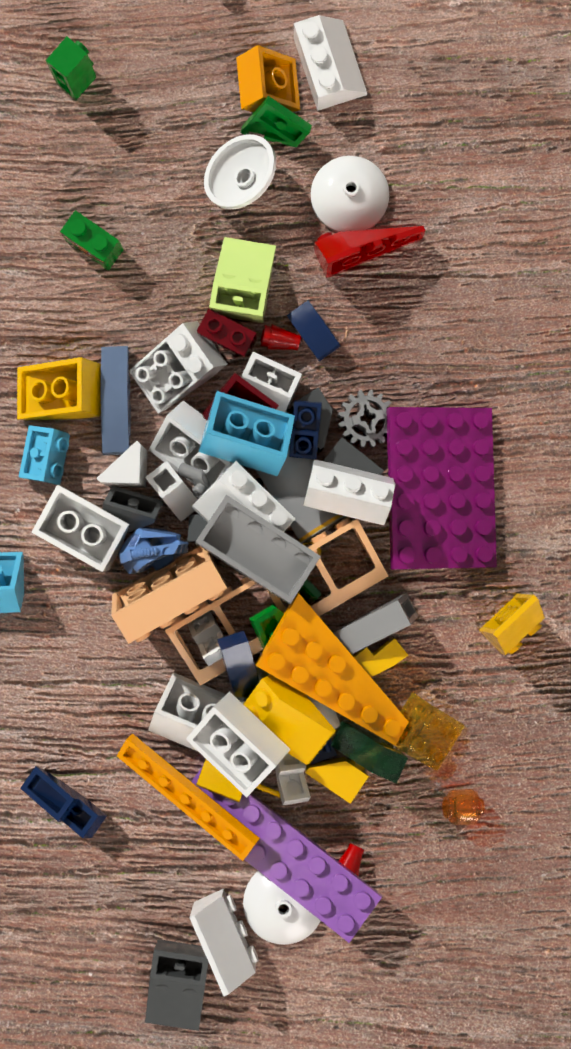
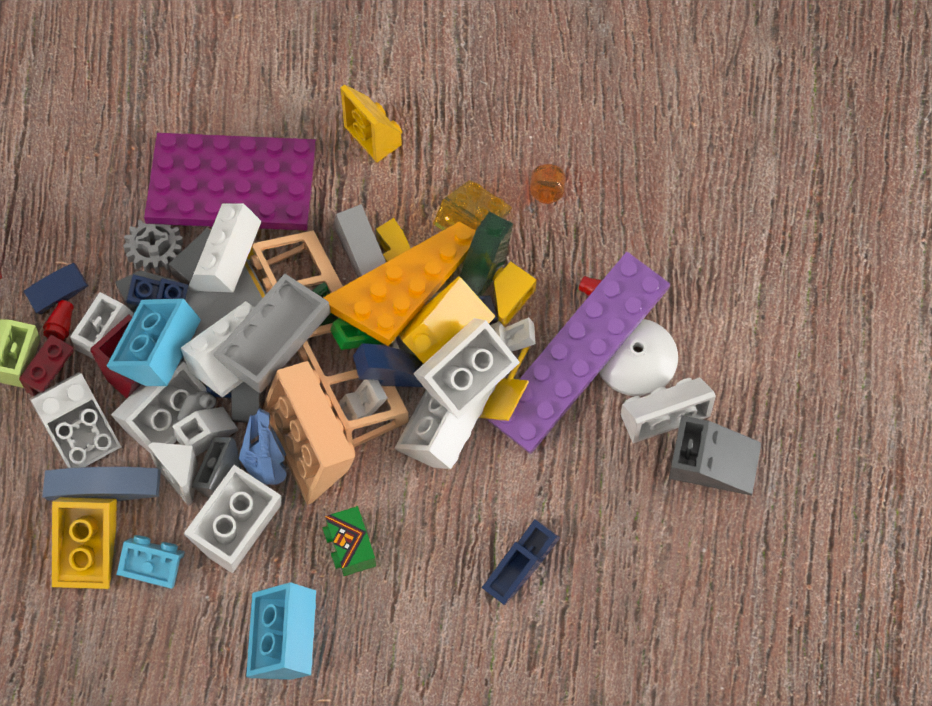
camera: 90 degrees left, 20 degrees down
(72, 639) = (350, 541): none -> green brick
(187, 797) = (519, 429): light orange plate -> none

